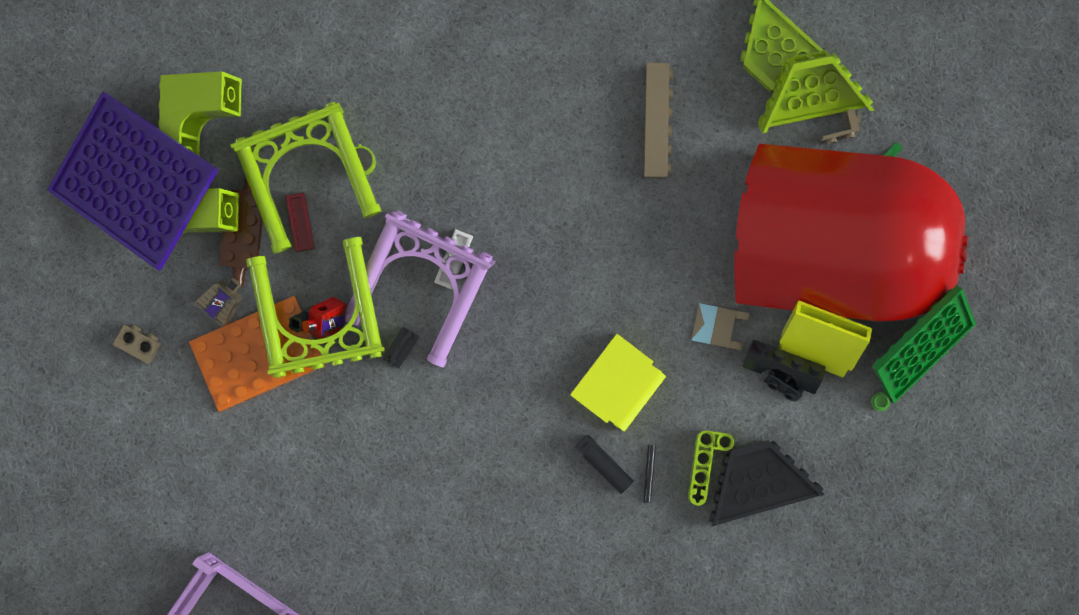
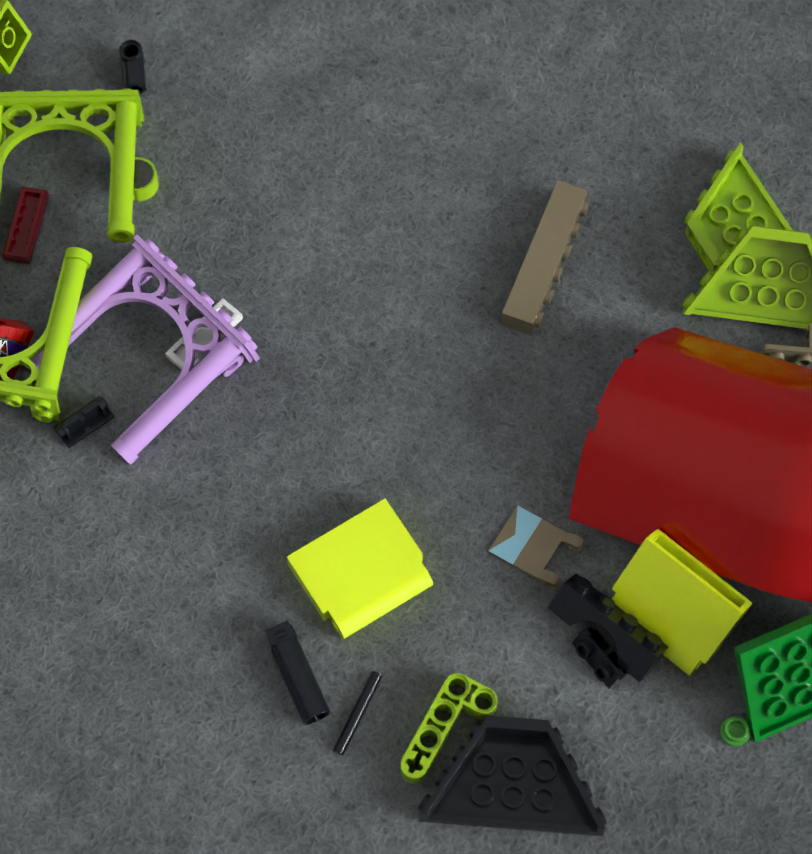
camera: 20 degrees right, 20 degrees down
(321, 77) = (133, 67): none -> black piece

